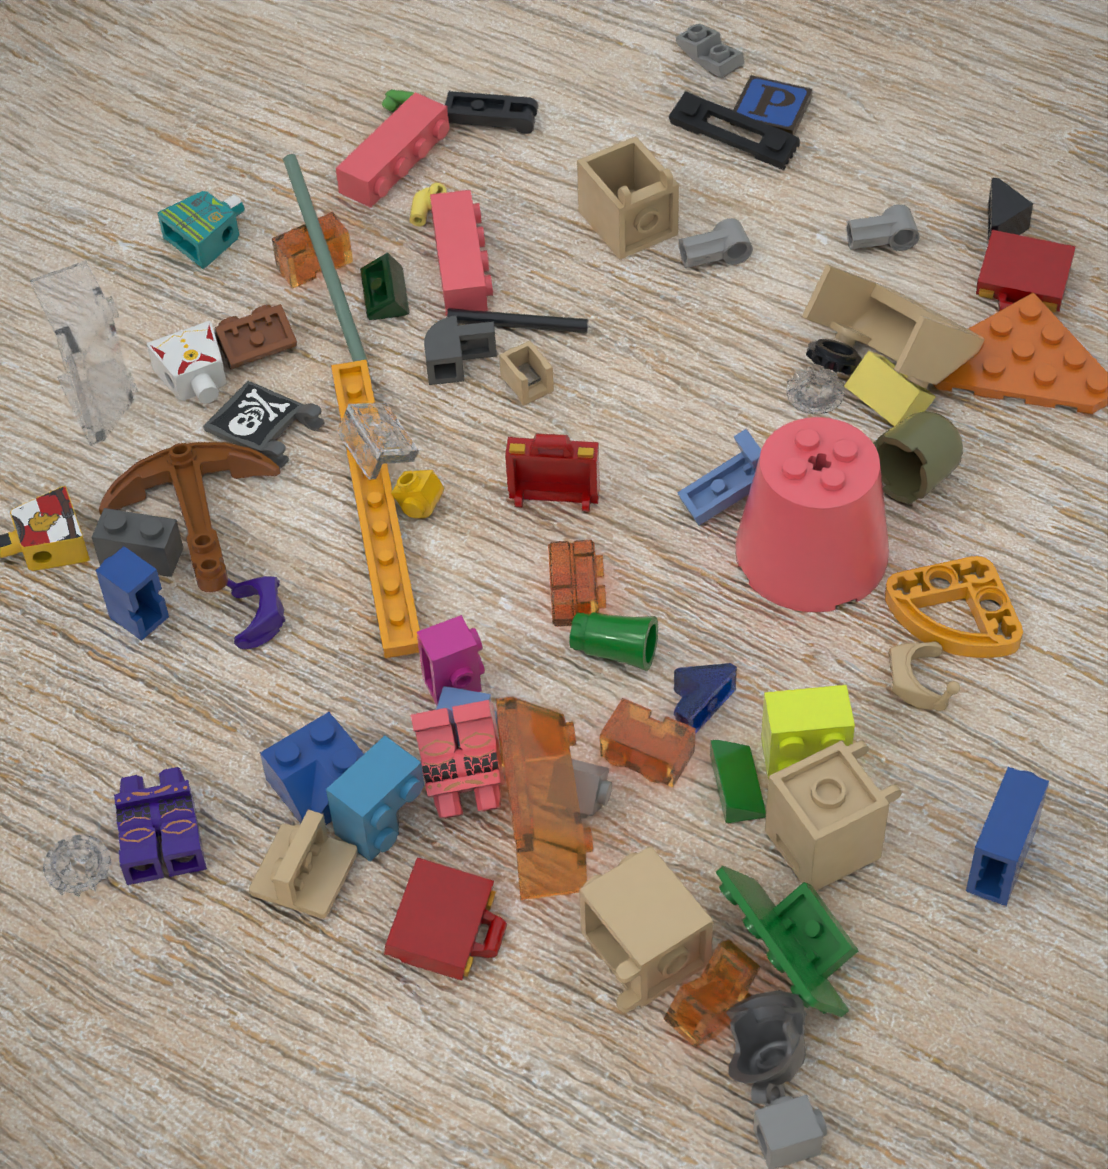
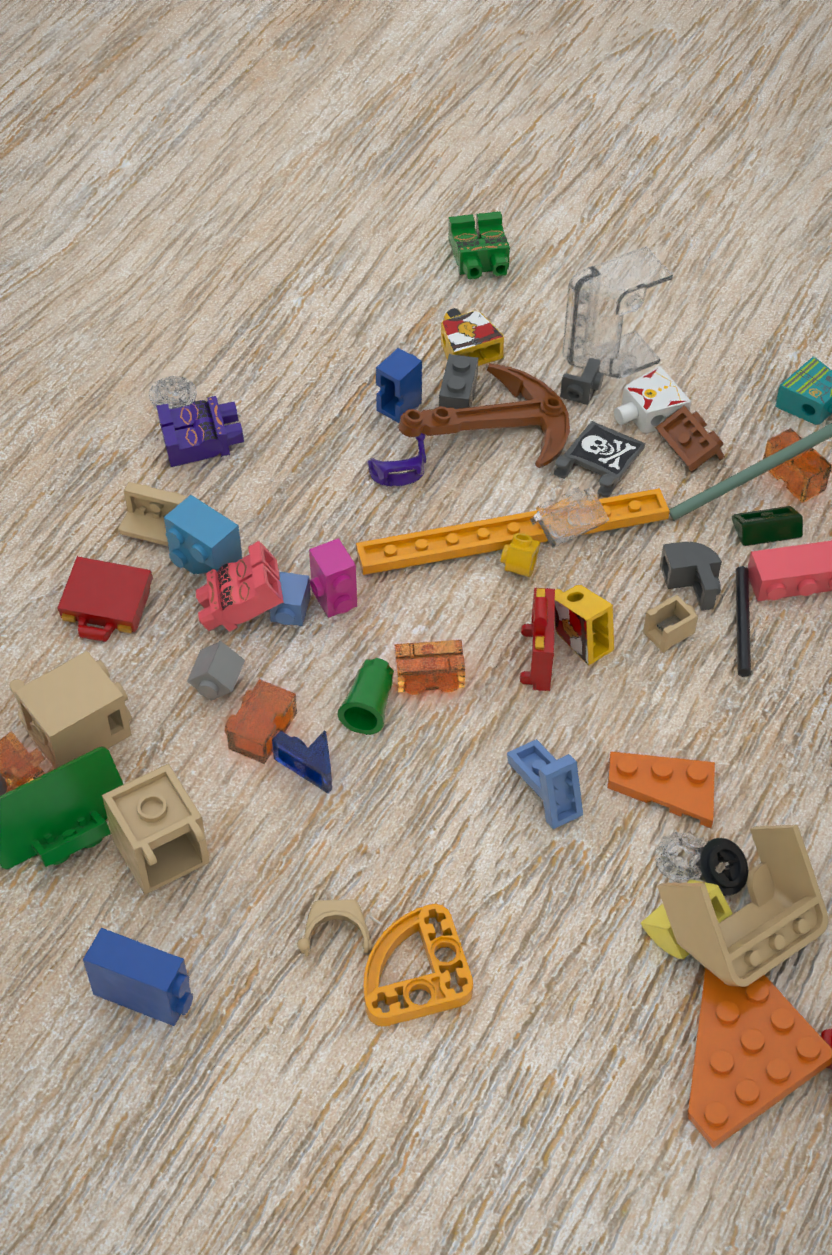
camera: 85 degrees right, 0 degrees up
(146, 420) = (582, 388): none -> dark grey bracket
(308, 764) = (249, 506): blue slope -> none
(521, 421) = (584, 622): none -> yellow torso
(542, 798) = (189, 617): clear orange windscreen -> none
(725, 397) = (672, 782): none -> orange wing
(736, 781) = (226, 786): green slope -> none
(804, 723) = (252, 825): neon yellow brick -> none
(815, 517) = (488, 830): coral cone -> none
(918, 455) = (590, 930): olive cylinder -> none

